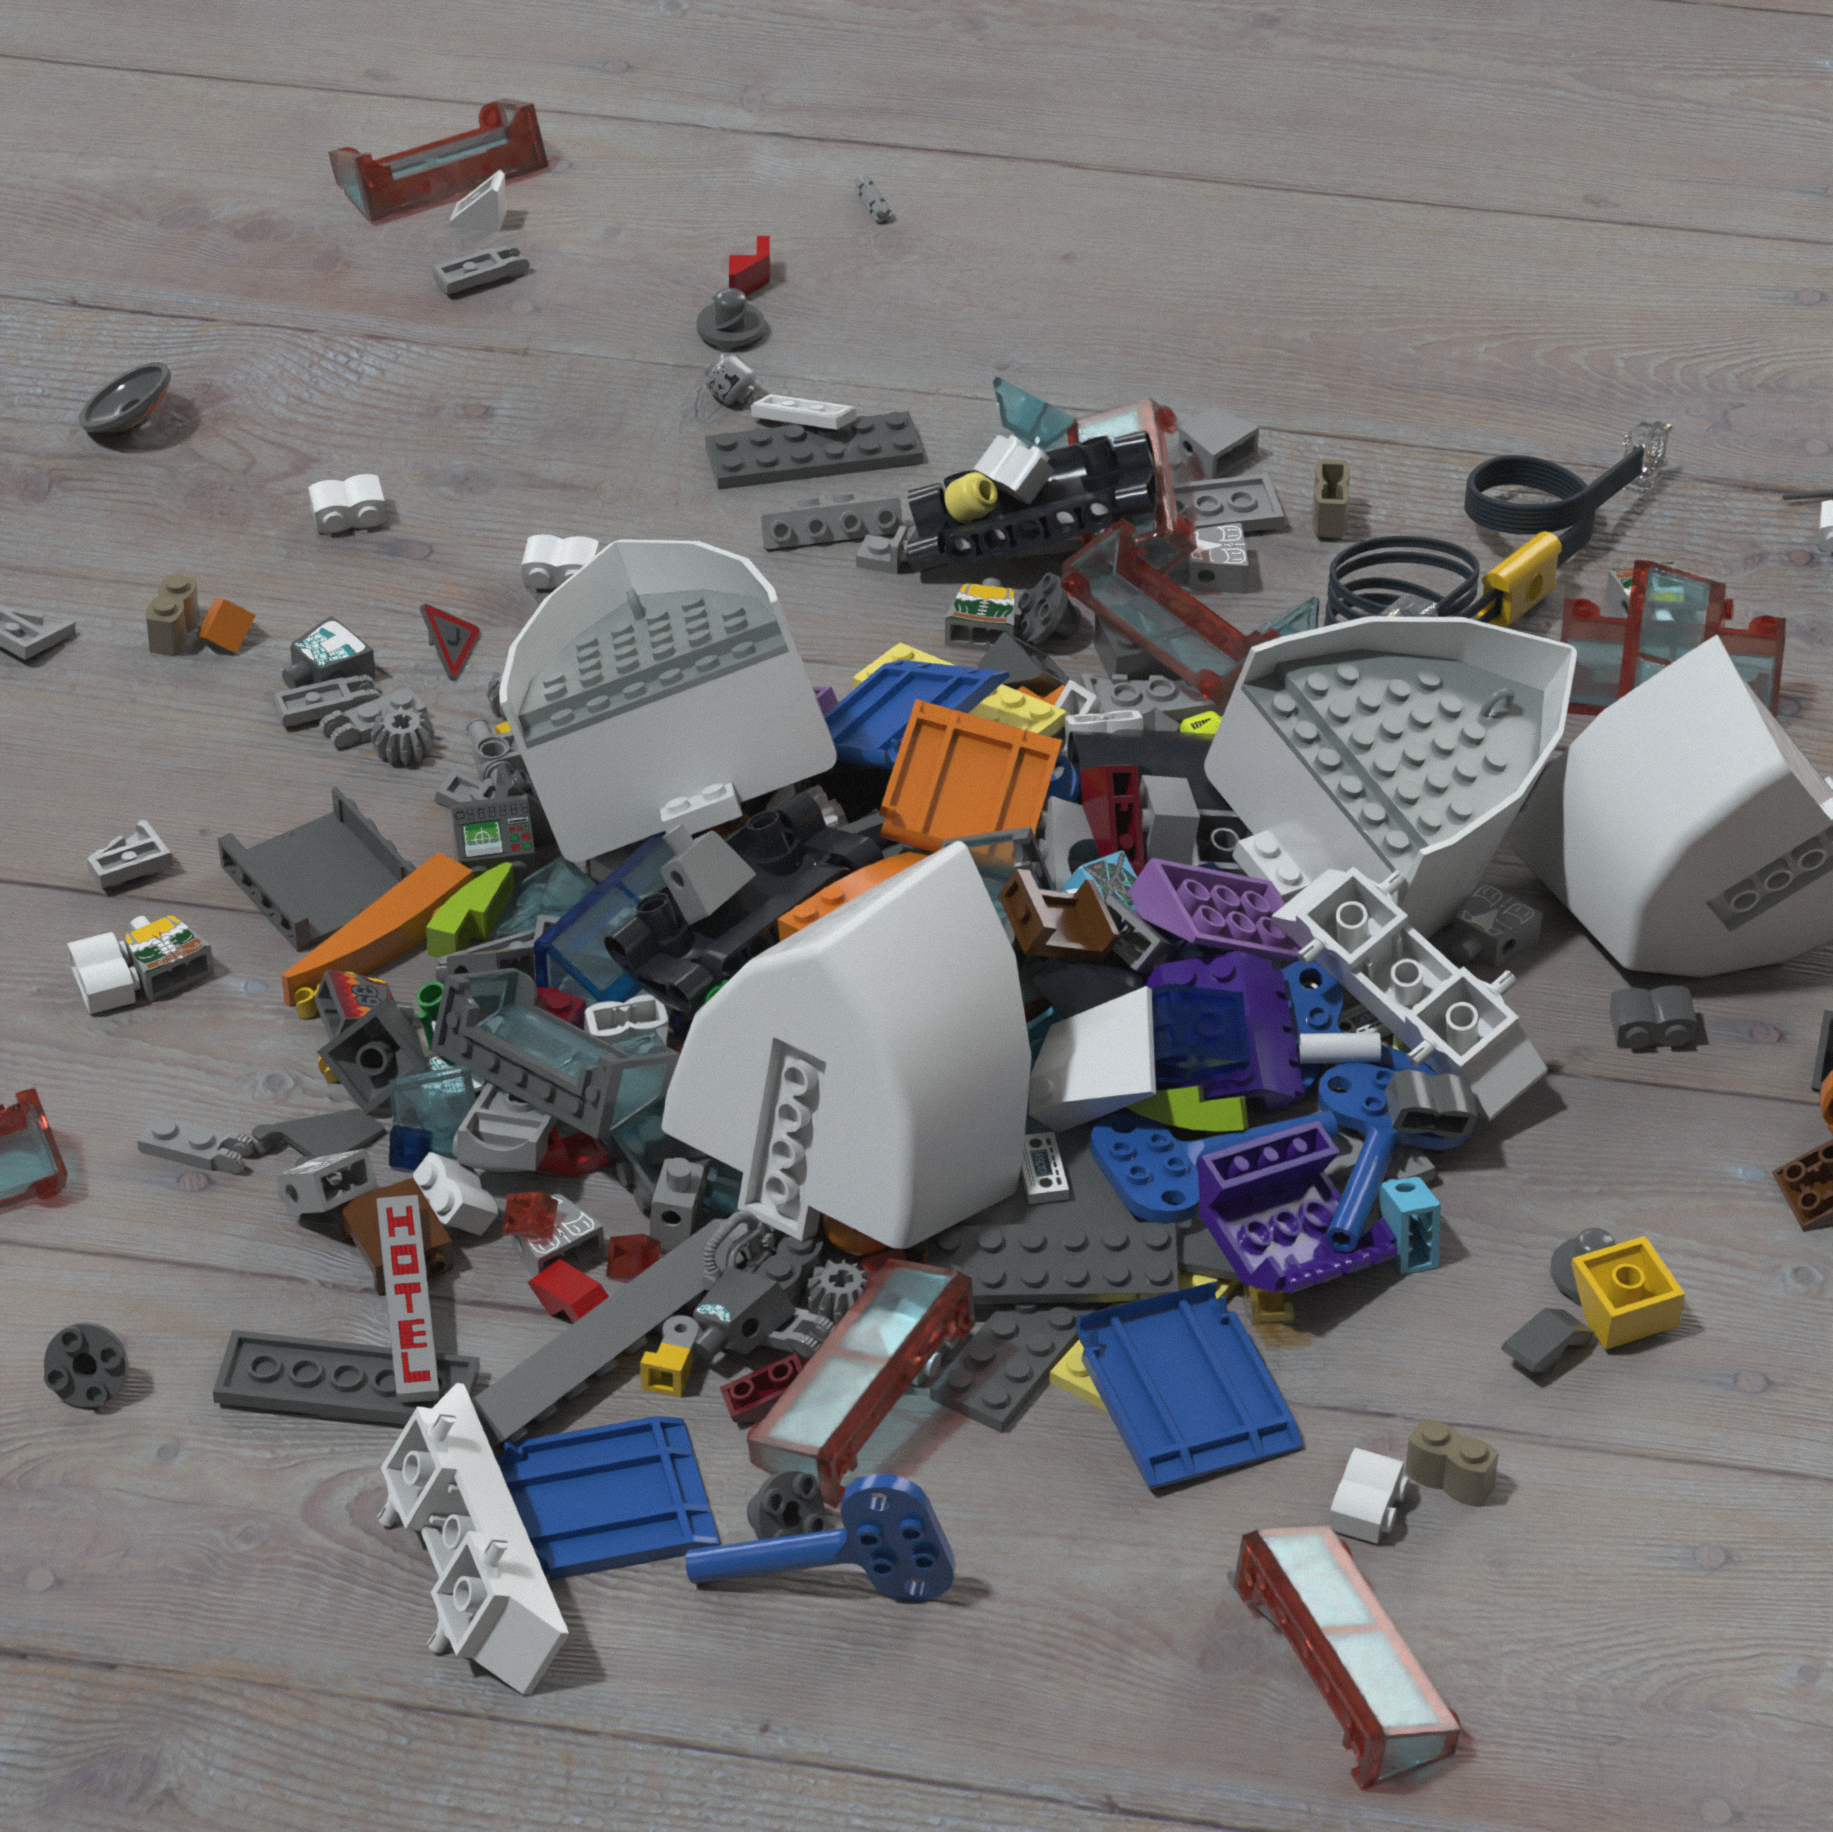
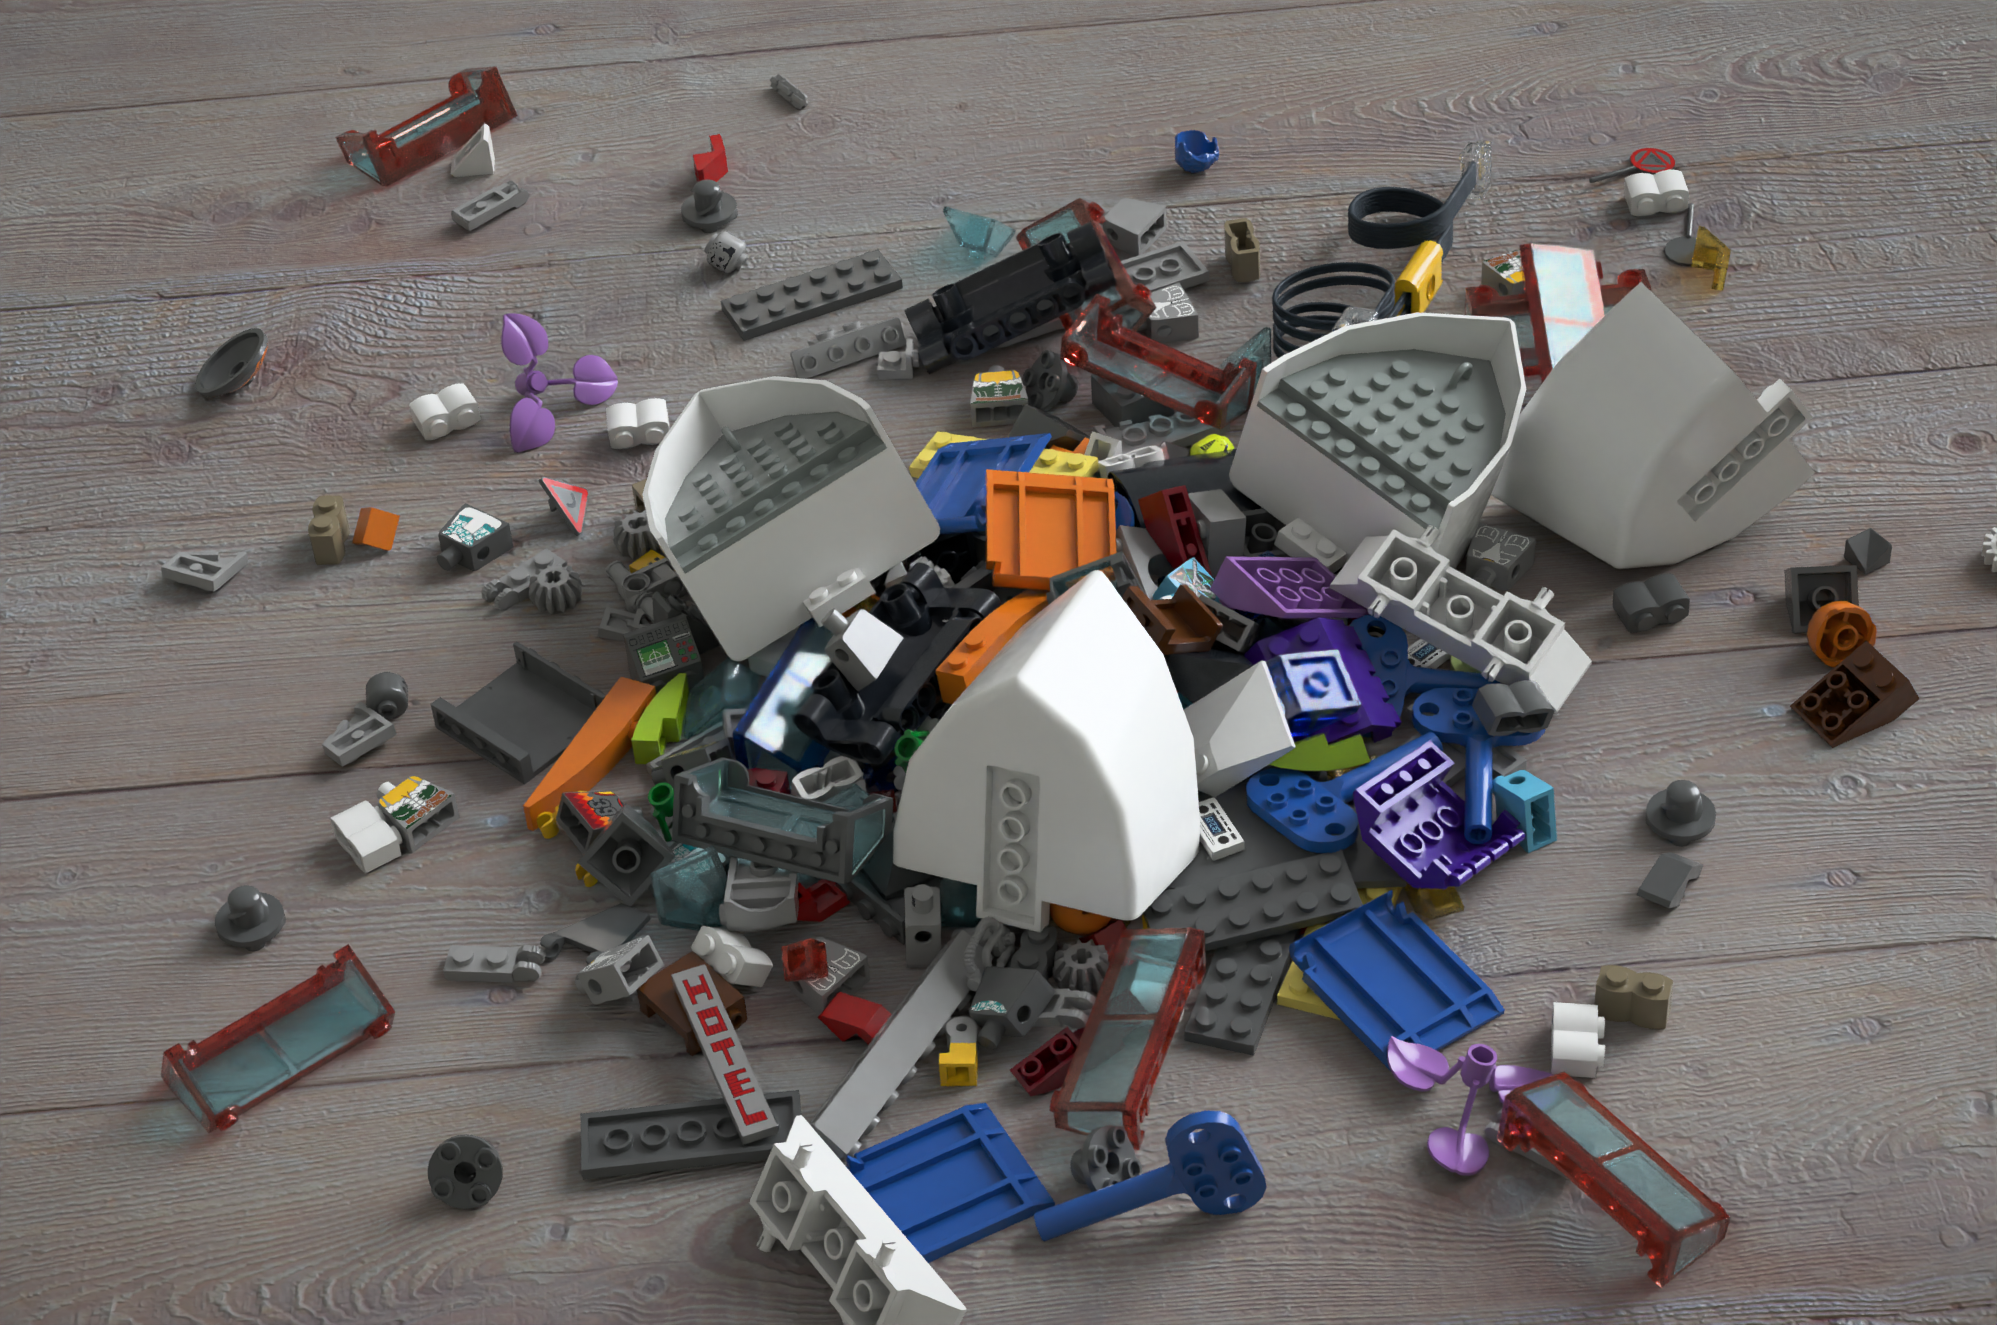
camera: 10 degrees left, 0 degrees up
(176, 816) = (387, 694): none -> dark grey head
(323, 698) = (477, 573): light grey hinge -> none
(409, 1146) = (679, 926): clear blue tile -> none
(447, 442) = (529, 423): none -> medium lavender plant
(631, 1255) = (896, 976): clear red slope -> none
(803, 411) = (794, 265): white tile -> none
(971, 498) = (961, 304): light yellow head -> none
(1015, 467) = (991, 273): white brick -> none
(1174, 1488) = (1422, 1066): none -> medium lavender plant
(1321, 366) = (1195, 151): none -> blue hair
(1340, 1048) = (1419, 679): white piece -> none
(1627, 1292) = (1721, 826): yellow slope -> none

